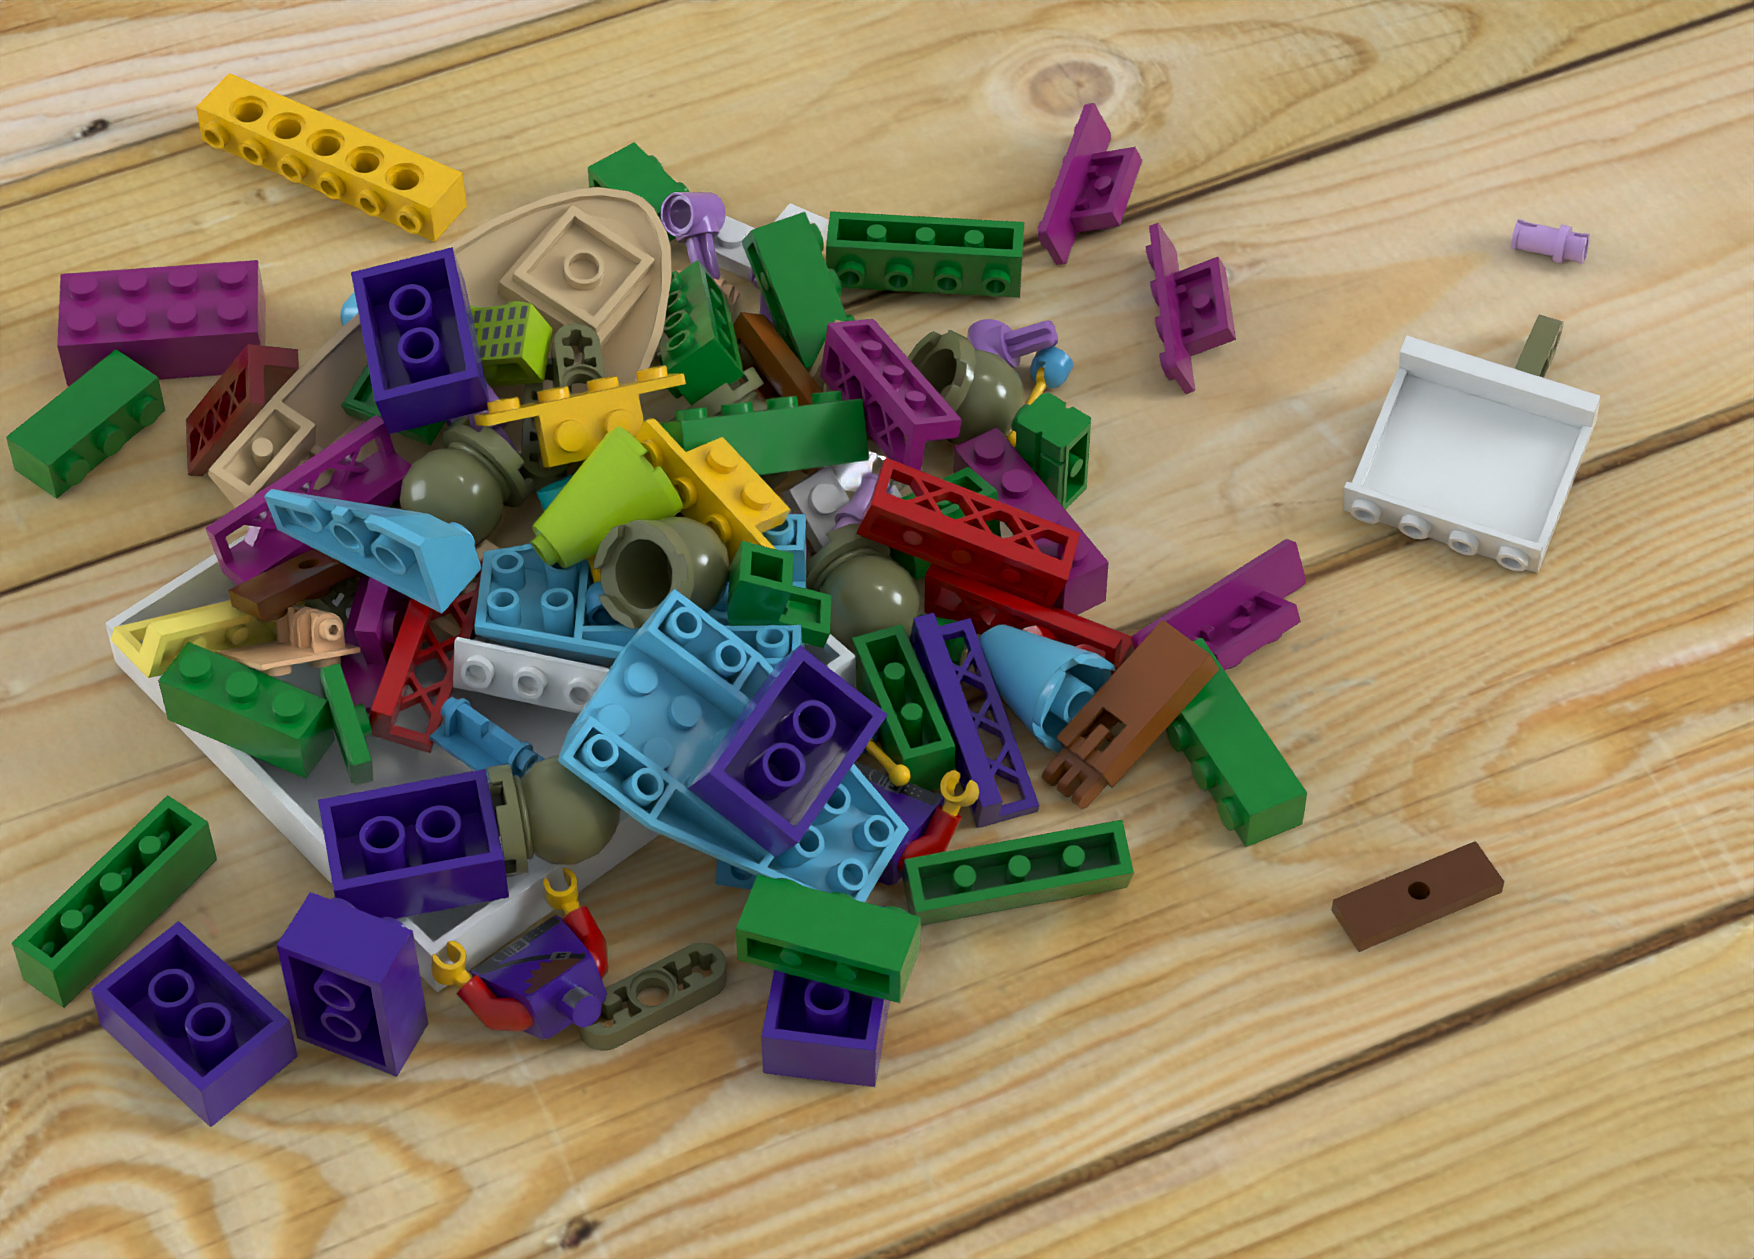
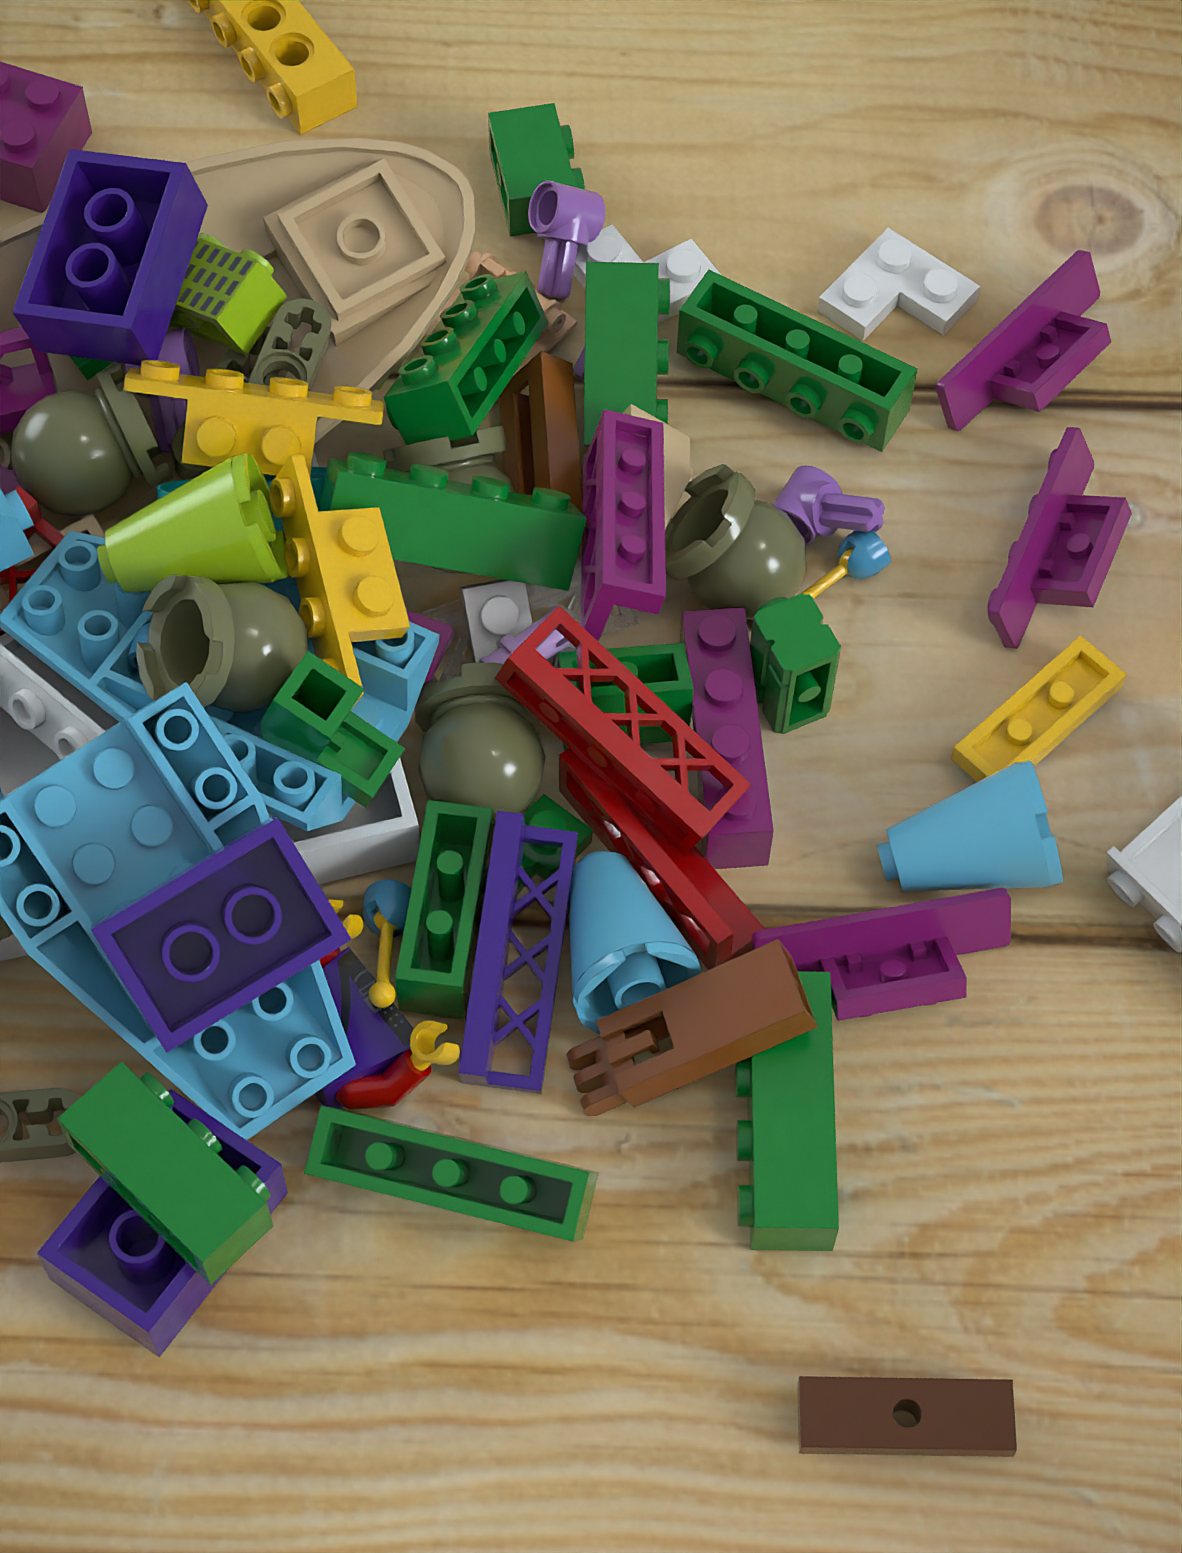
camera: 25 degrees right, 10 degrees up
(961, 173) = (894, 275): none -> white plate
(1239, 426) = (1041, 711): none -> yellow plate
(1251, 514) = (977, 838): none -> medium azure cone

